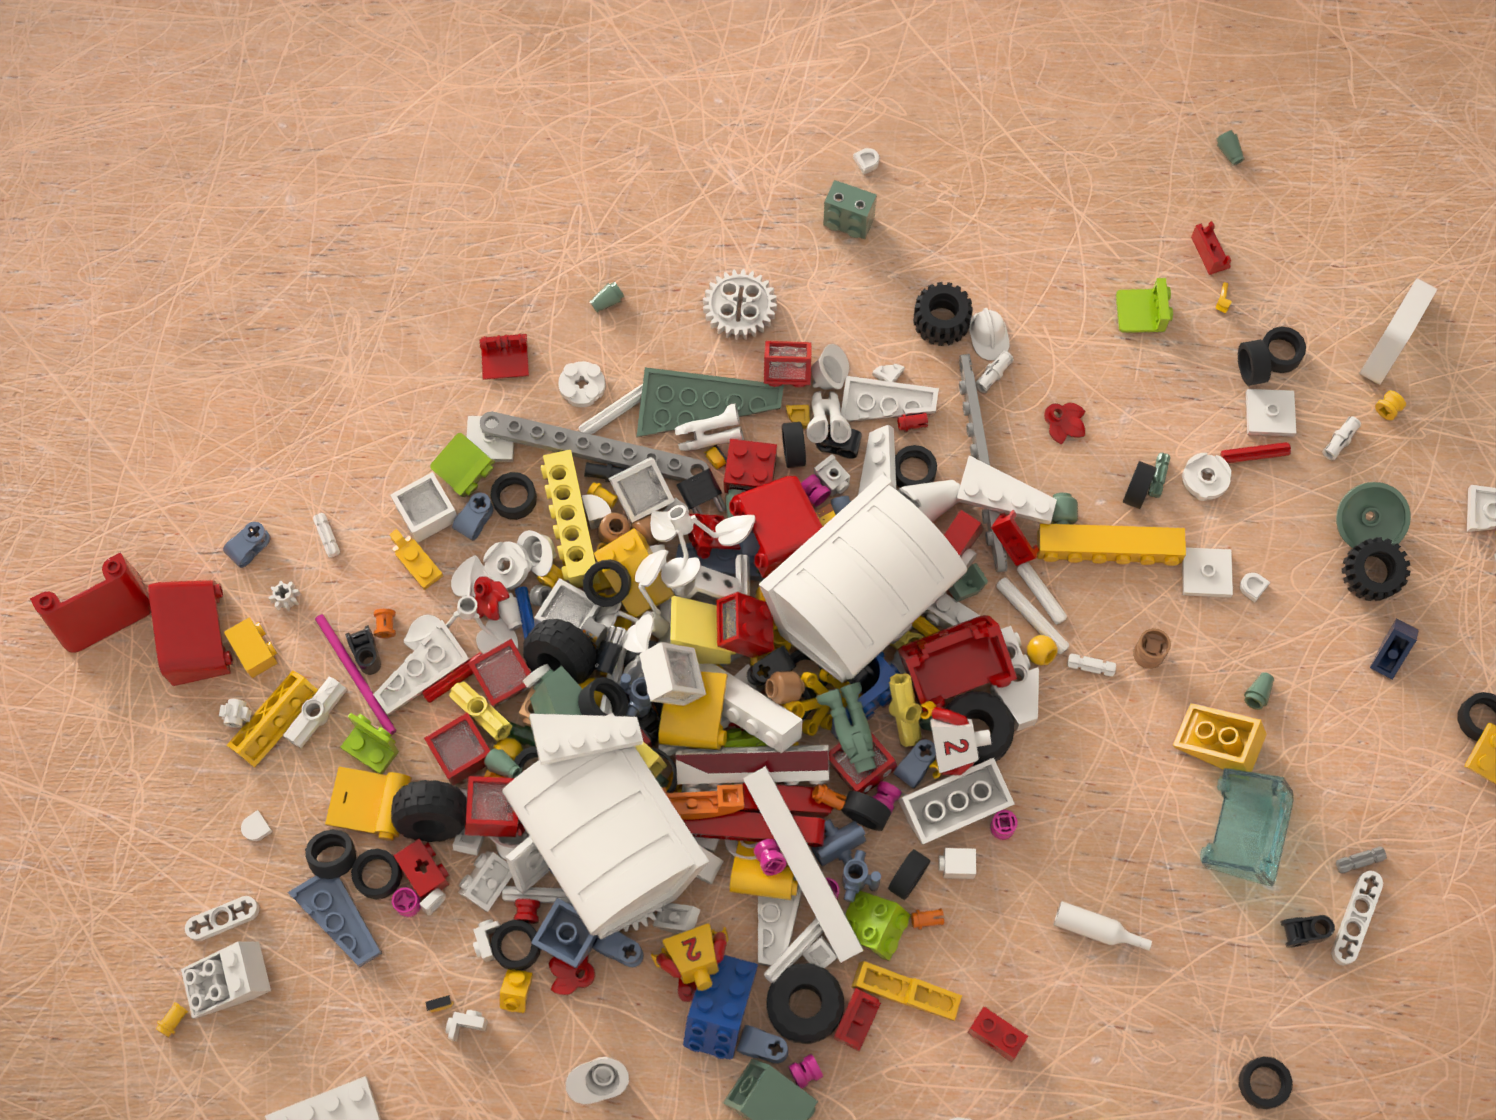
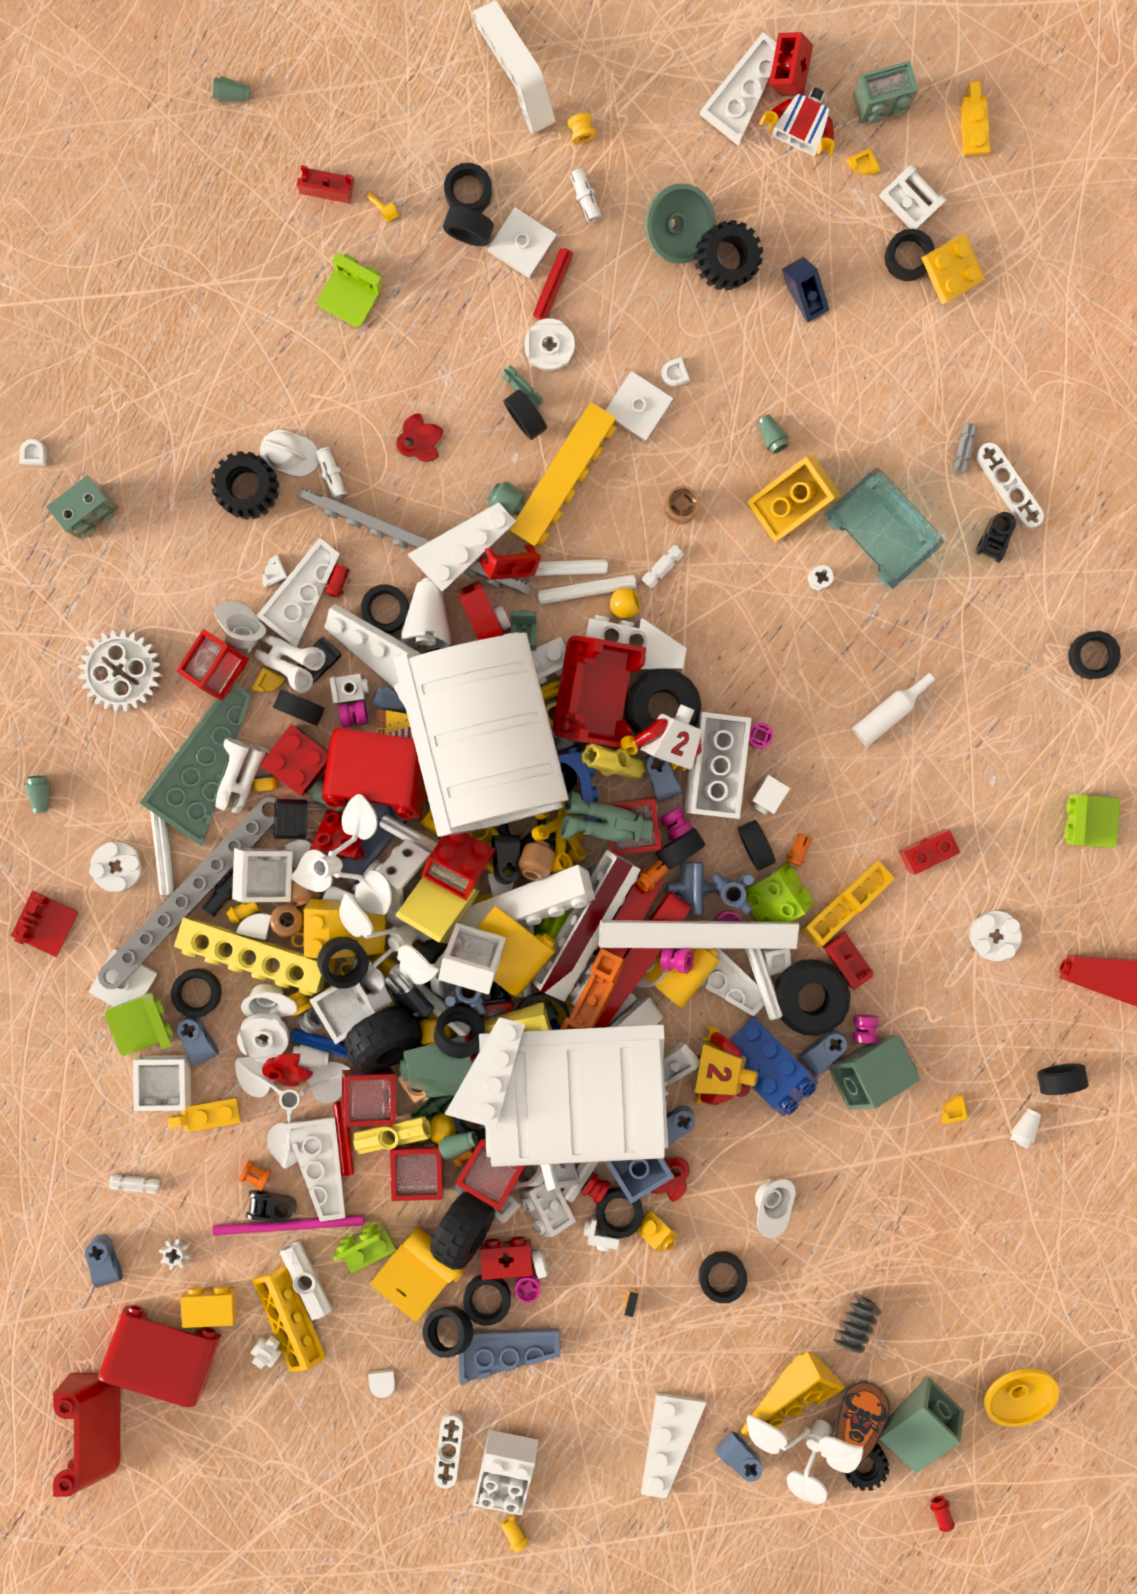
camera: 65 degrees left, 20 degrees up
(471, 1019) = (661, 1284): white bracket -> none
(487, 1067) = (732, 1294): none -> black tyre
(534, 677) = (394, 1071): white tile -> none
(1174, 793) = (828, 577): none -> white bush

